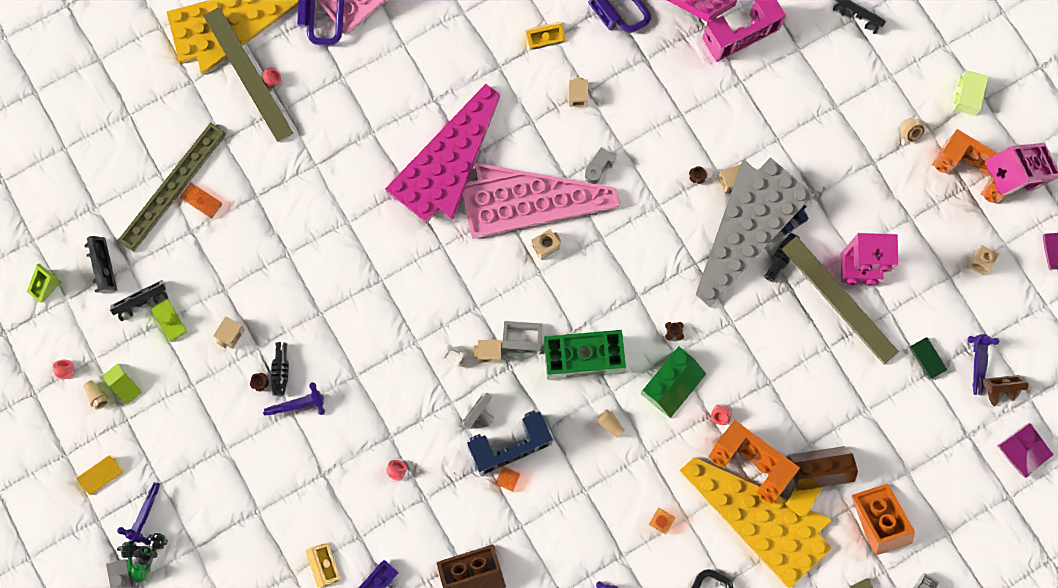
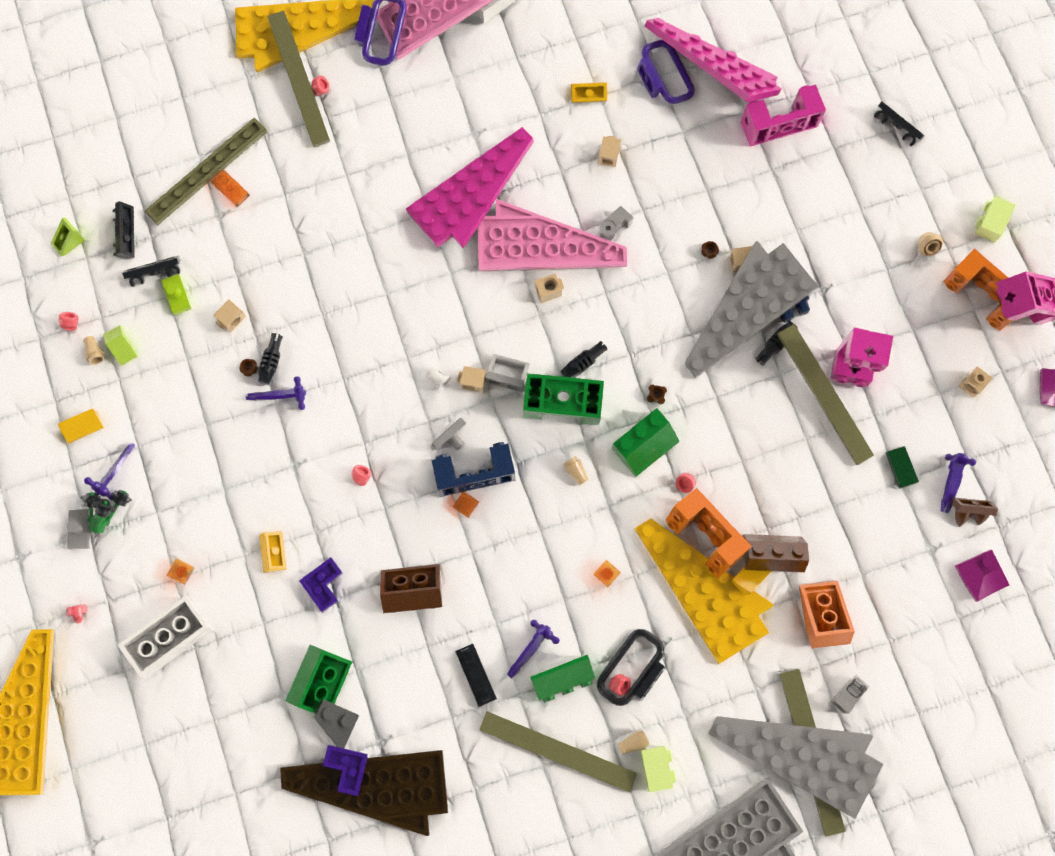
camera: 15 degrees right, 0 degrees up
(595, 311) = (583, 360): none -> black hinge

